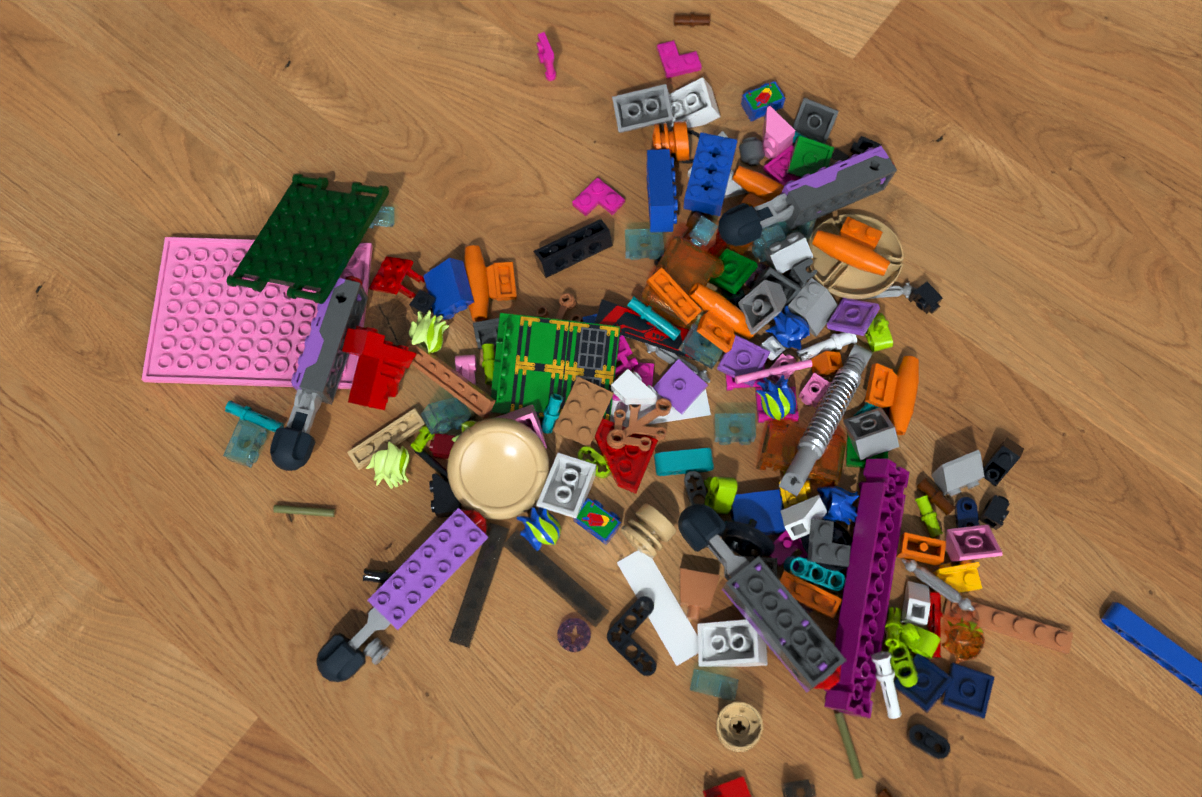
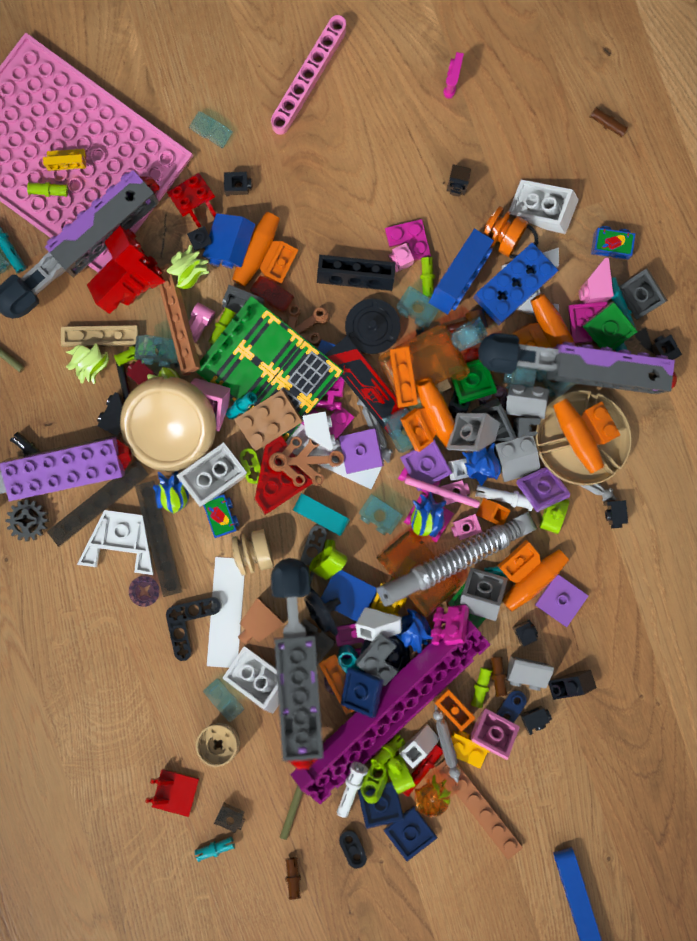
camera: 30 degrees right, 15 degrees up
(263, 345) = (47, 189): none -> lime pin
(264, 312) = (65, 160): none -> yellow bracket
(309, 238) = (140, 118): dark green plate -> none
(420, 239) = (232, 179): none -> black brick
(428, 135) = (311, 66): none -> bright pink beam
(432, 637) = (27, 528): none -> dark grey gear
(514, 306) = (272, 293): none -> clear red slope
(517, 597) = (120, 533): none -> white wing
(603, 211) = (402, 257): none -> bright pink brick
(606, 129) = (458, 180): none -> black slope
(617, 280) = (372, 326): none -> black piece
(633, 216) = (427, 276): none -> lime pin
(643, 108) = (501, 184): light grey slope -> none
(654, 318) = (378, 380): teal pin -> none
(677, 64) = (564, 155): dark pink plate -> none
(751, 151) = (569, 284): dark grey head -> none
(833, 583) = (361, 692): none -> dark blue plate
(869, 469) = (456, 625): none -> dark pink plate
(931, 441) = (525, 633): none -> black brick
(937, 399) = (561, 600): none -> medium lavender plate

